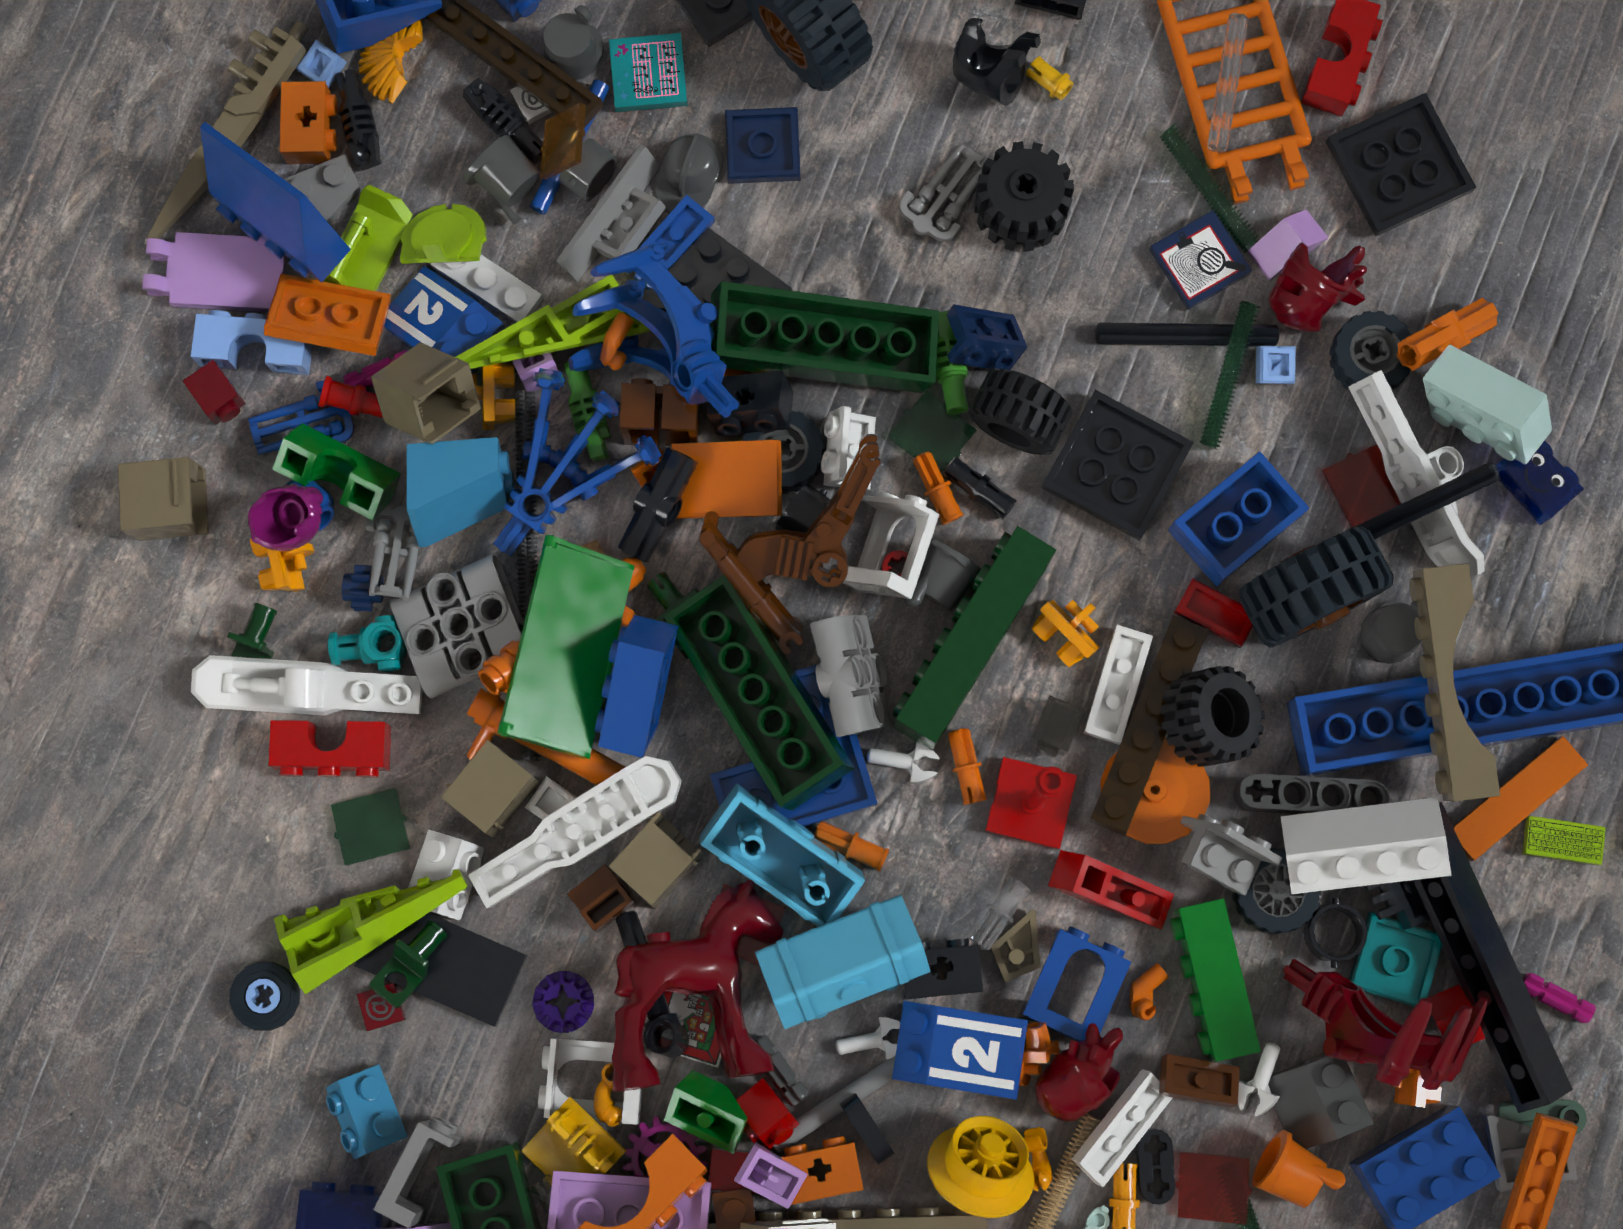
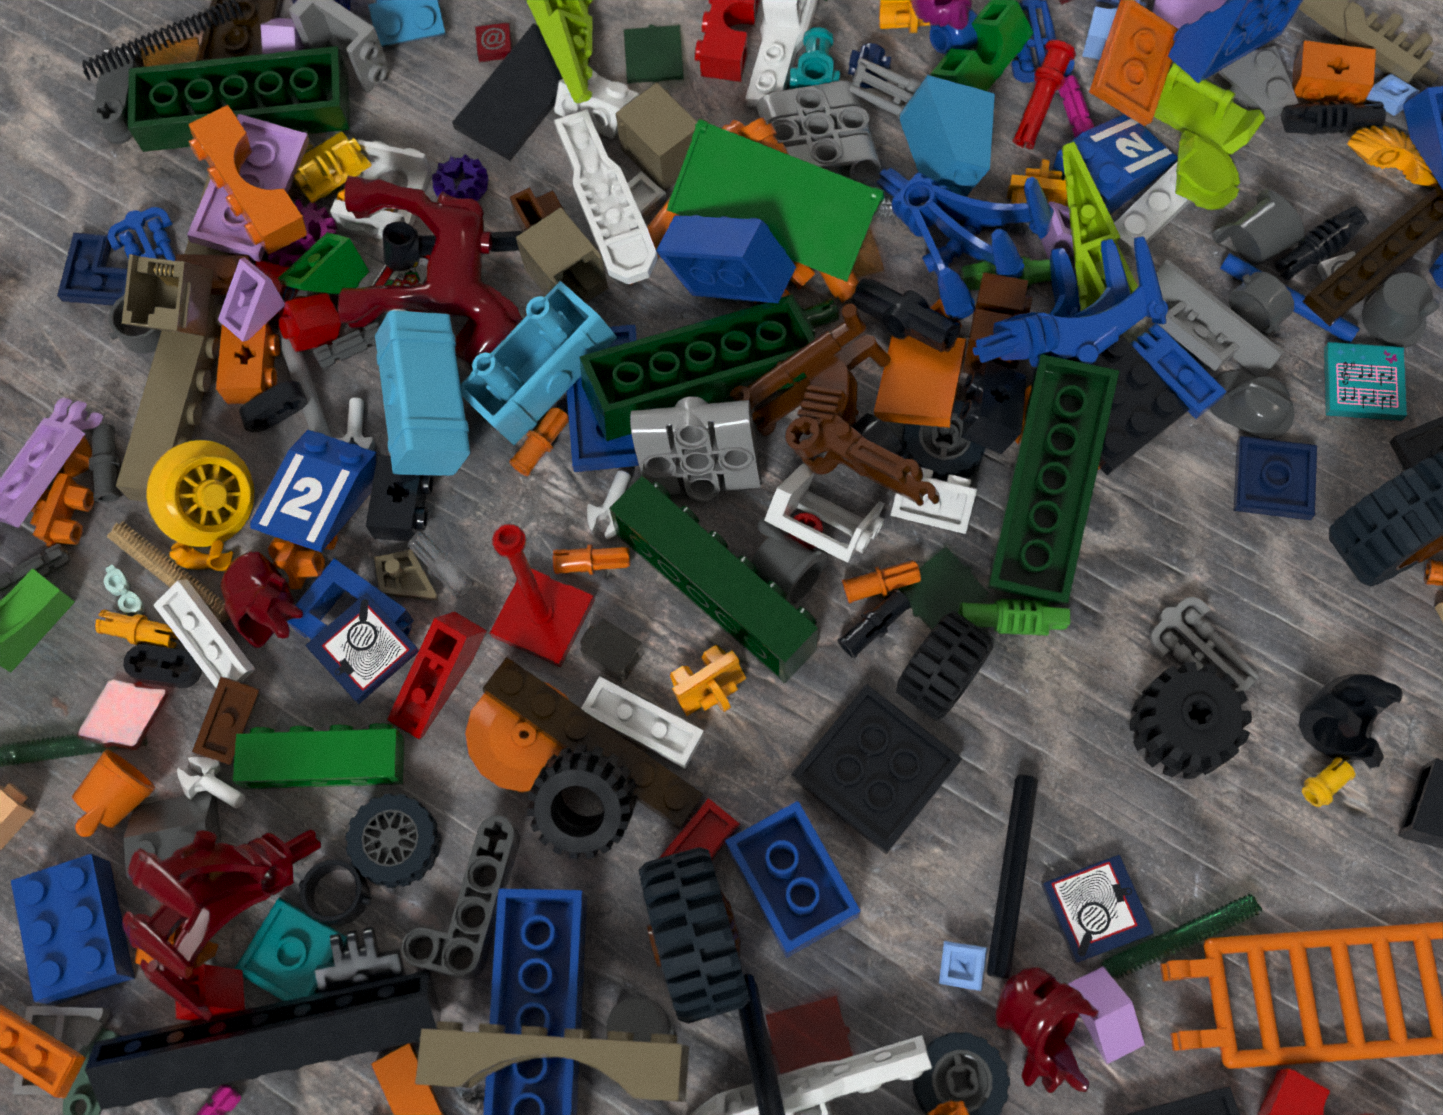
camera: 105 degrees right, 10 degrees down
(410, 962) = (521, 57): dark green bracket -> none
(426, 393) = (1043, 118): dark tan piece -> none
(563, 141) = (1292, 274): clear orange piece -> none
(613, 339) = (1074, 286): orange arm -> none
(985, 338) = (1034, 651): dark blue bracket -> none
(1111, 958) = (362, 648): none -> tile
(1142, 992) = (326, 686): orange arm -> none
(1225, 853) = (436, 779): light grey bracket -> none
(1227, 82) = (1307, 977): clear axle -> none
(1228, 374) = (958, 909): clear green axle -> none
(1365, 845) = (401, 927): white slope -> none

